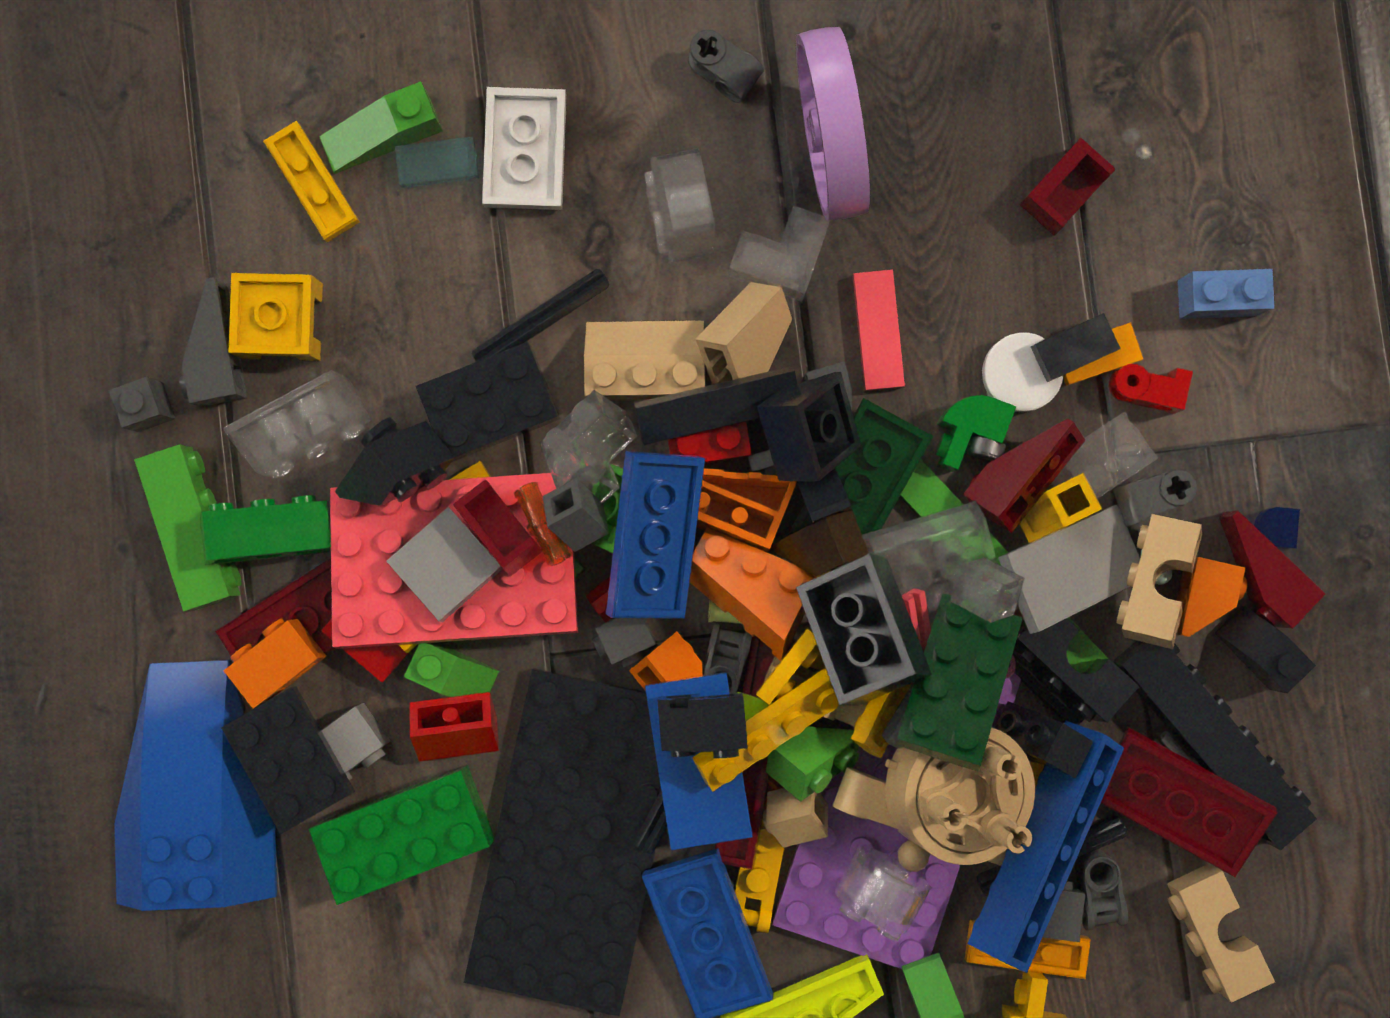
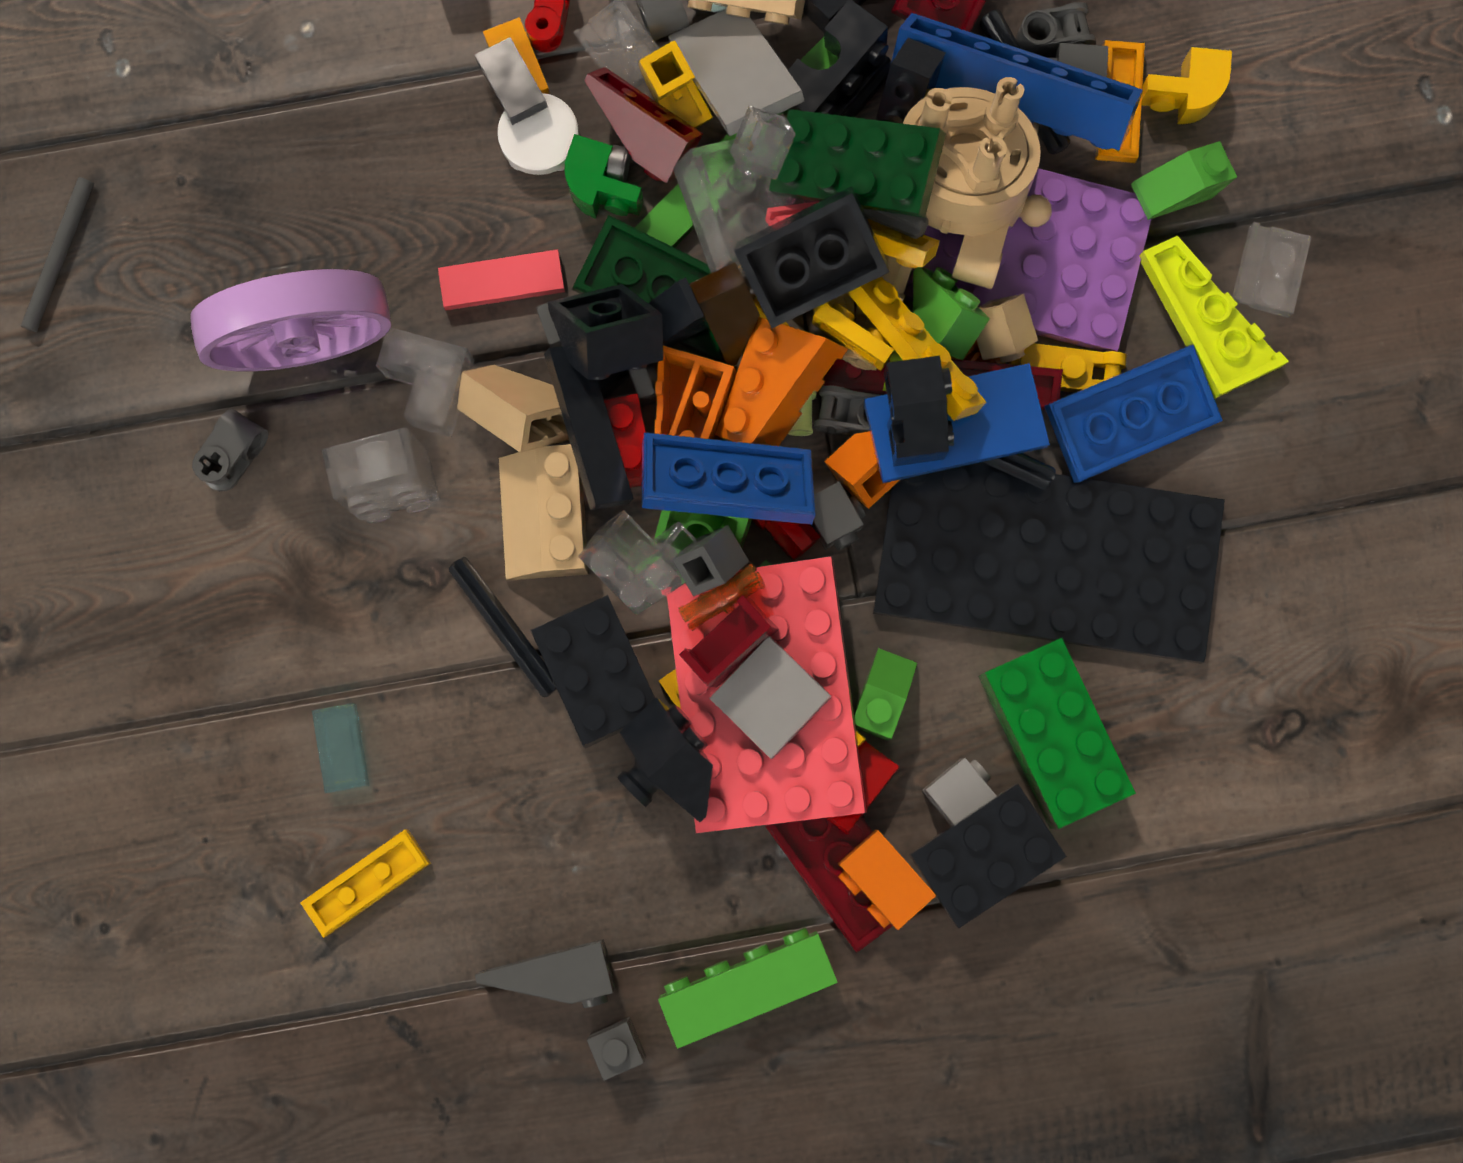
camera: 90 degrees left, 5 degrees down
(187, 810) = (1042, 967): blue wedge -> none
(265, 530) = (745, 899): green brick -> none
(273, 315) = (513, 908): yellow panel -> none
(299, 424) = (631, 870): clear slope -> none
(378, 128) = (306, 808): bright green slope -> none
(453, 726) = (939, 685): red brick -> none
(524, 148) = (322, 654): white plate -> none
(881, 892) = (1074, 236): clear brick -> none
(1067, 186) = (345, 100): dark red panel -> none

